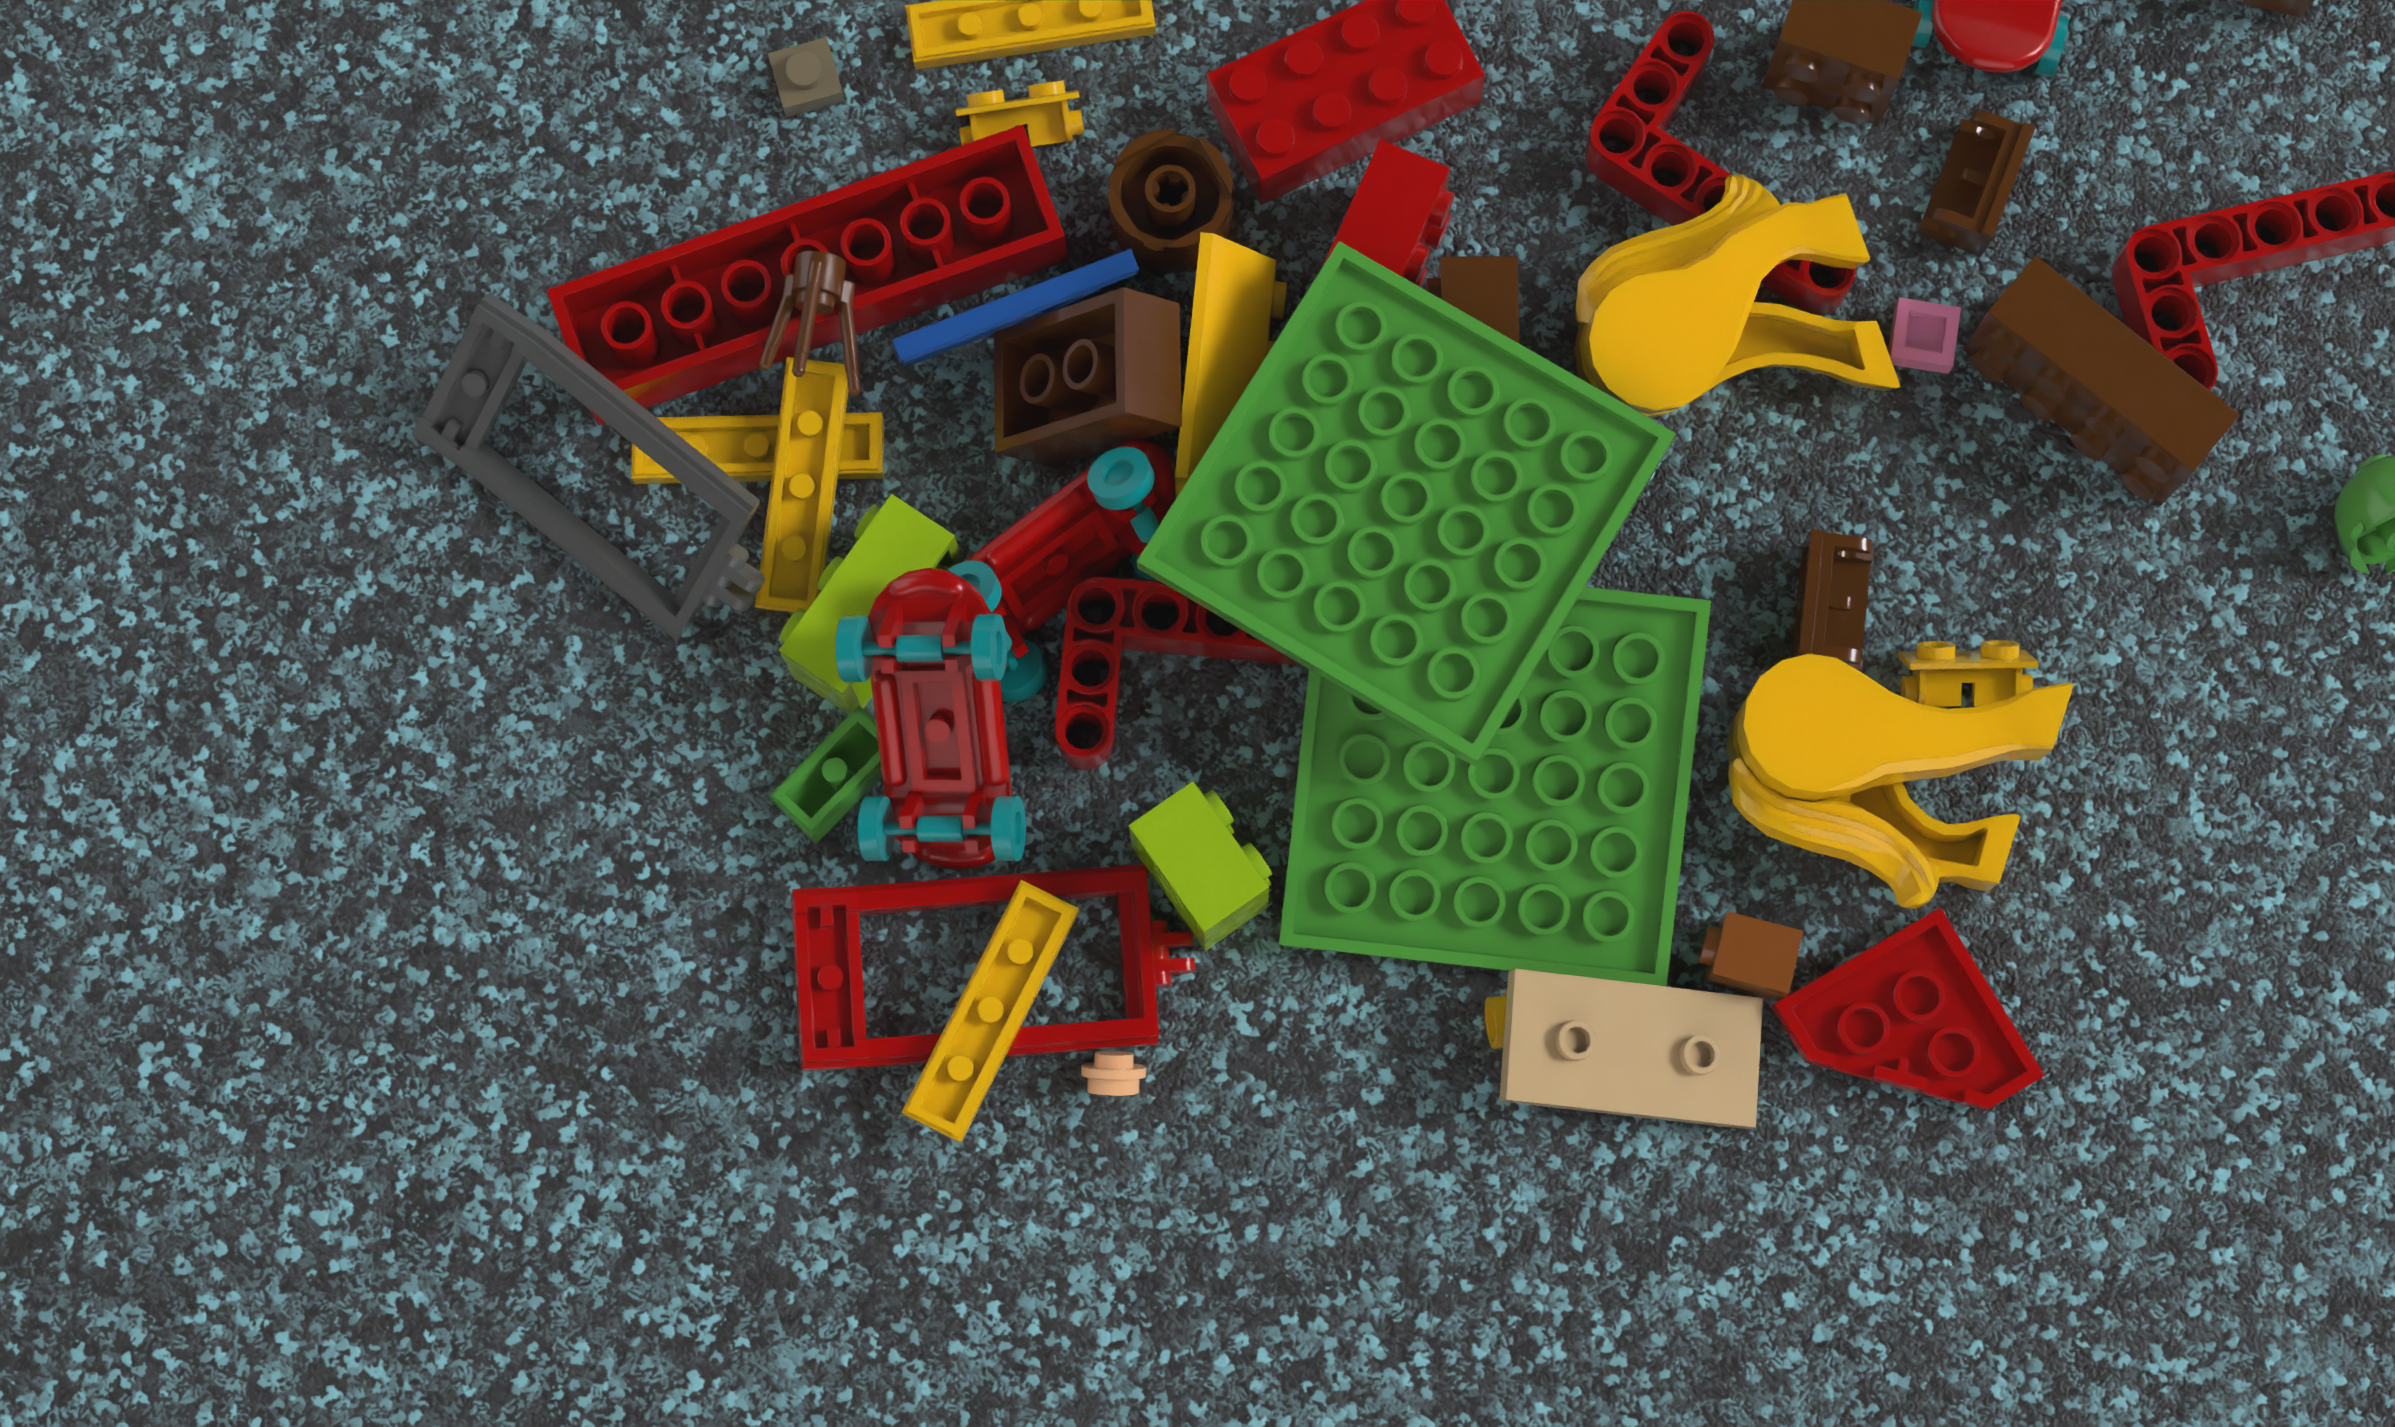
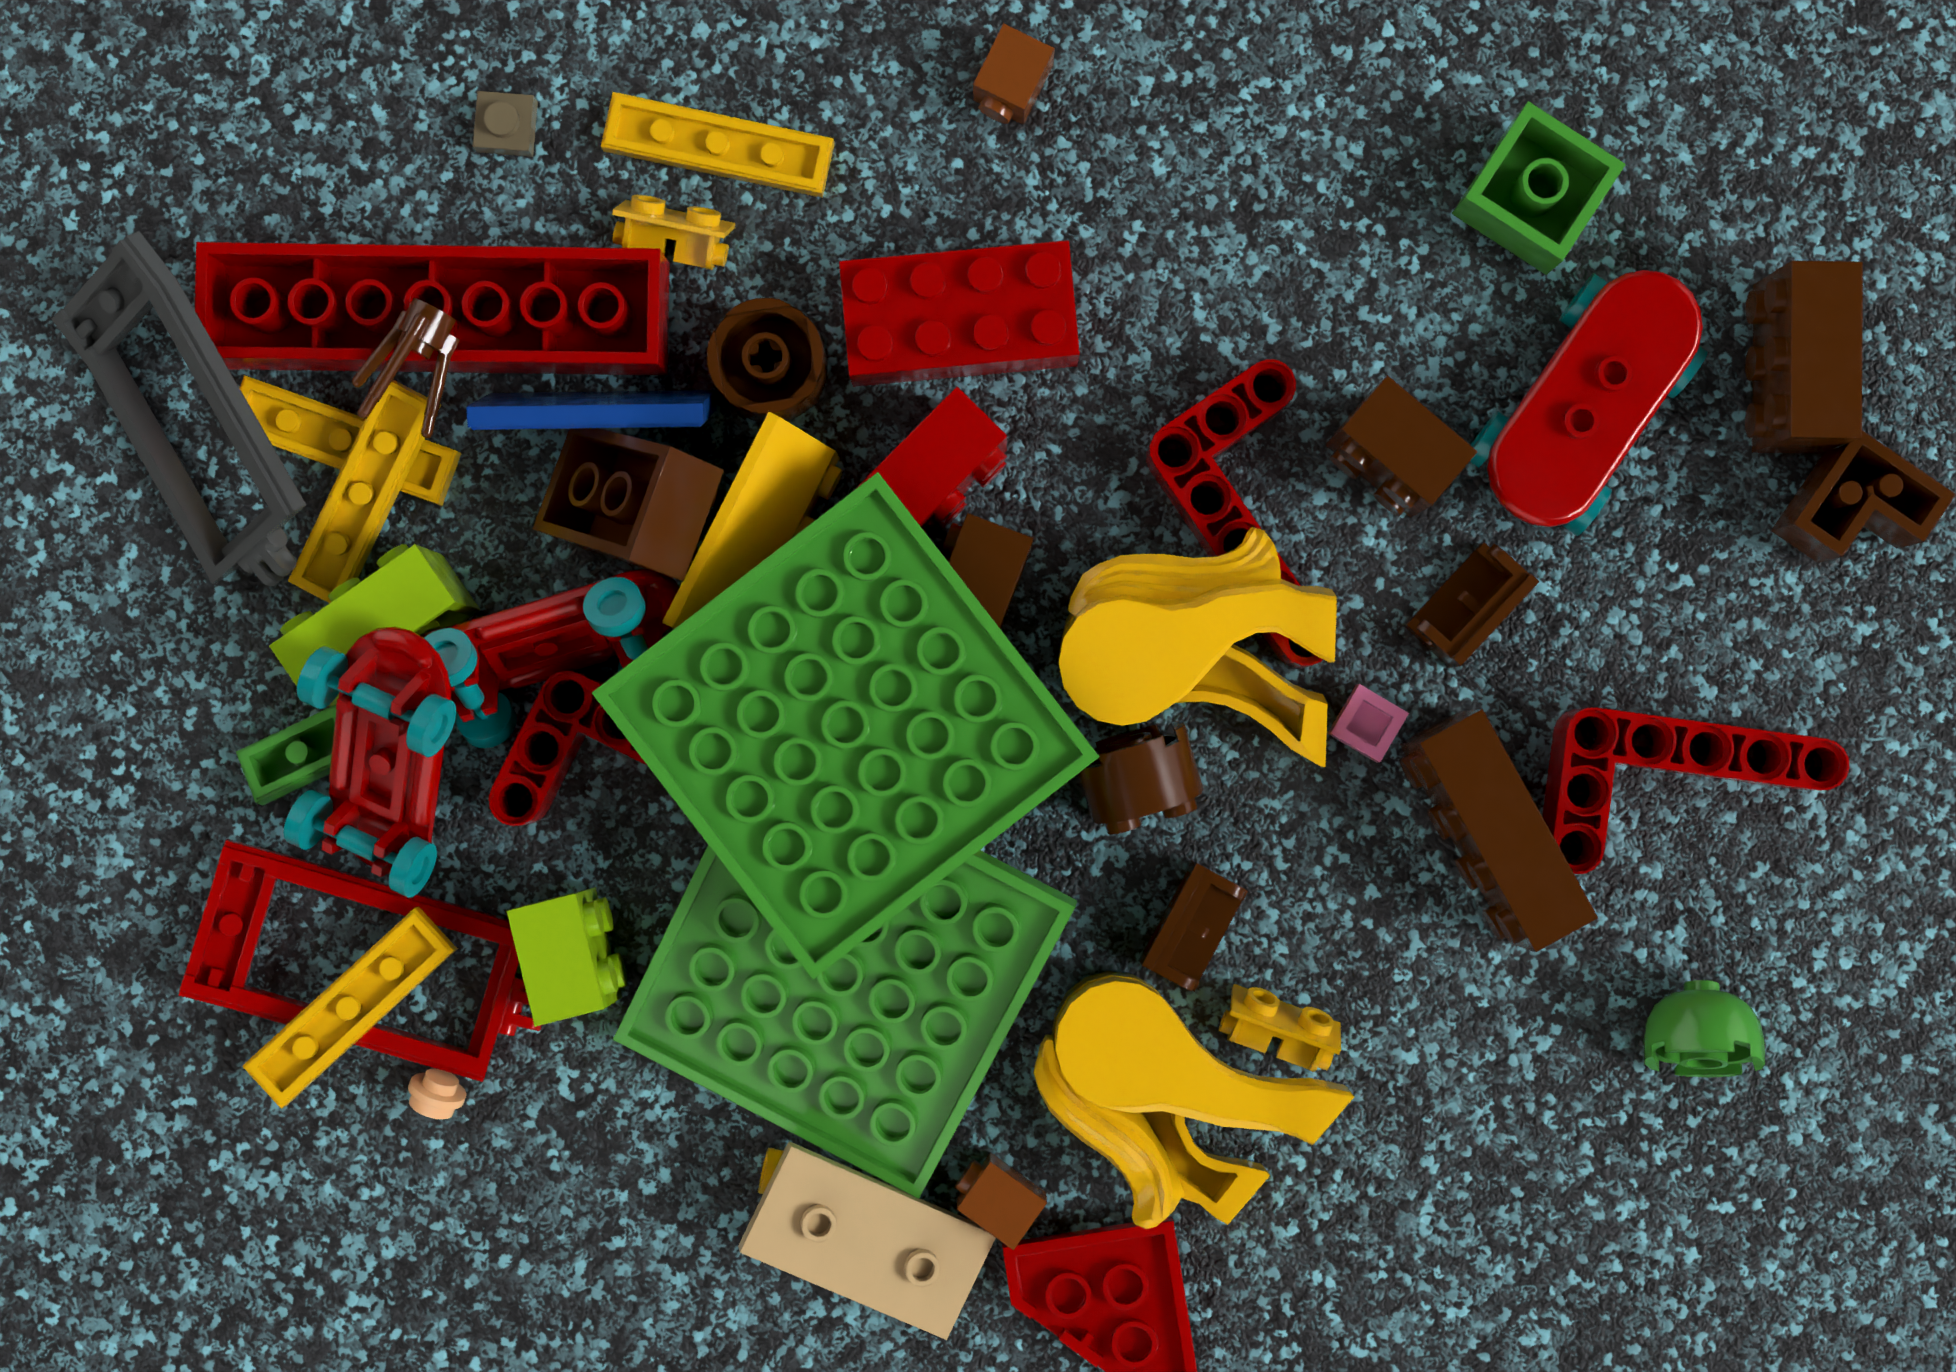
camera: 25 degrees right, 10 degrees up
(1715, 462) = (1140, 777): none -> reddish brown brick

